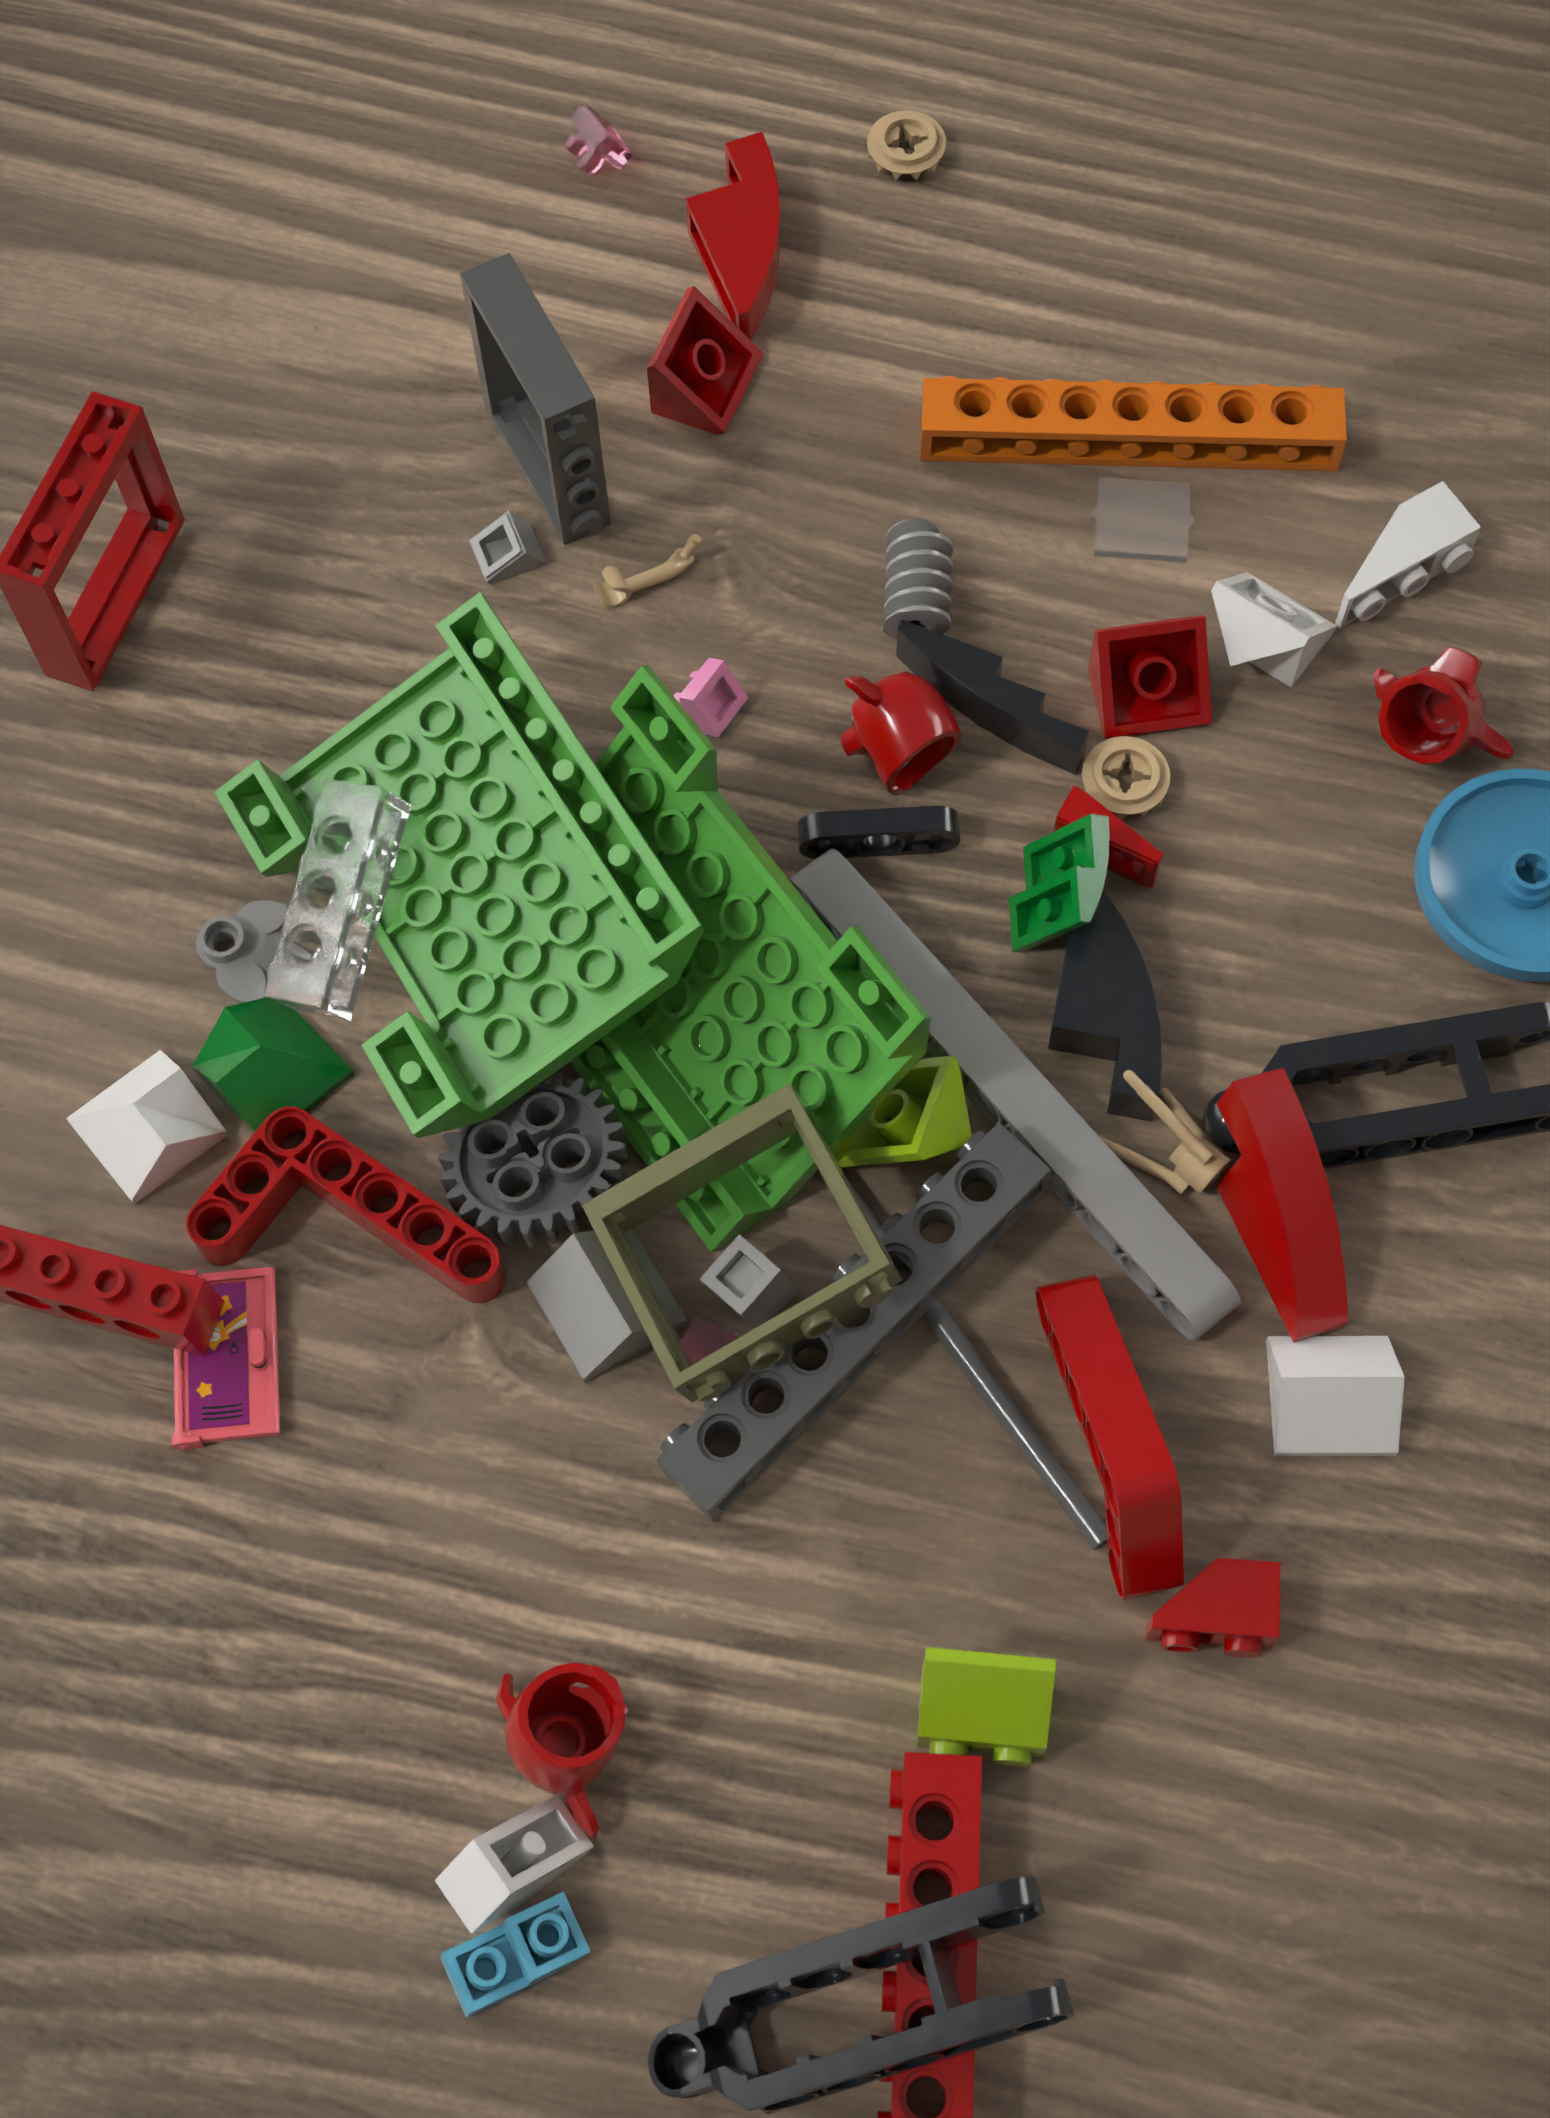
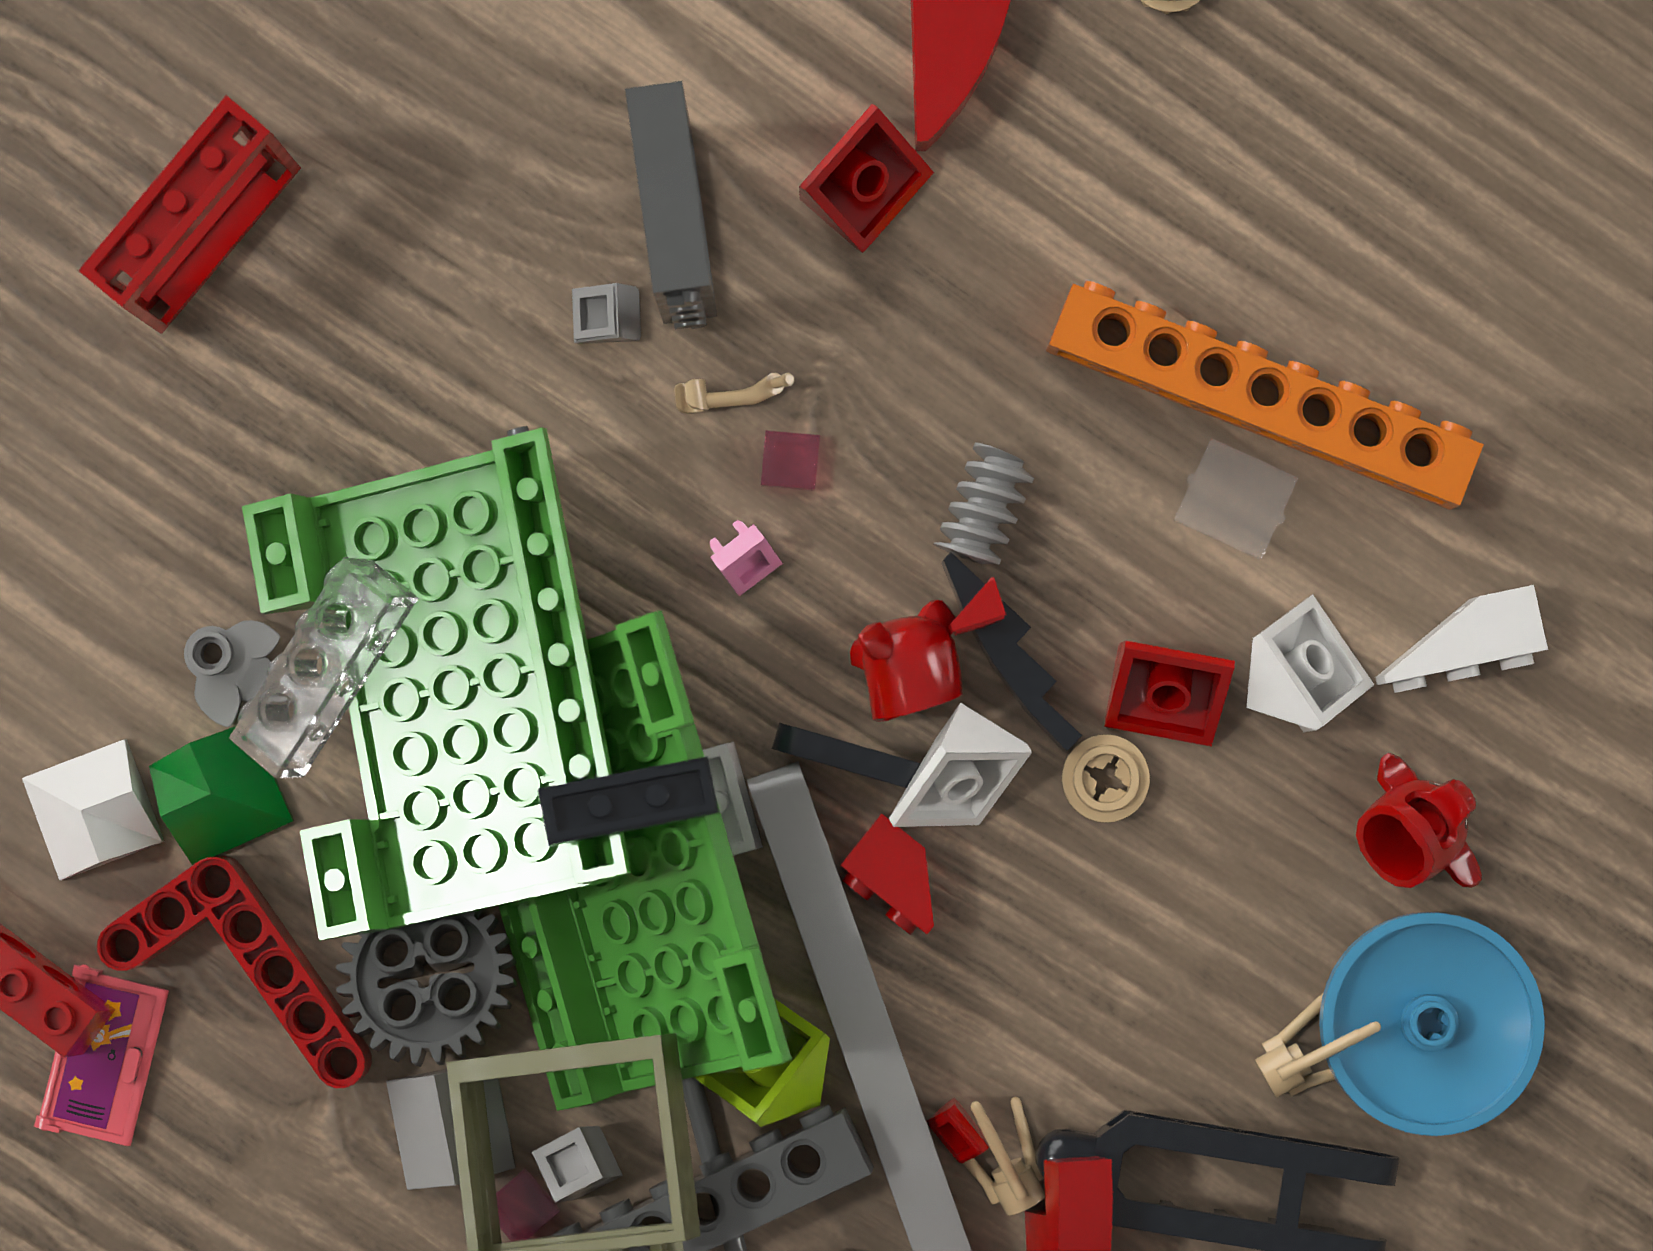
camera: 15 degrees right, 20 degrees up
(677, 860) = (627, 801): none -> black tile
(722, 612) = (790, 460): none -> clear pink tile
(950, 646) = (981, 611): none -> red slope
(961, 916) = (896, 870): none -> red slope
(991, 799) = (961, 773): none -> white slope
(1062, 882) = (996, 887): green slope -> none
(1109, 1008) = (996, 1003): black slope -> none
(1122, 1124) = (958, 1131): none -> red slope
(1128, 851) = (1052, 832): red slope -> none
(1410, 967) = (1287, 1067): none -> tan plant

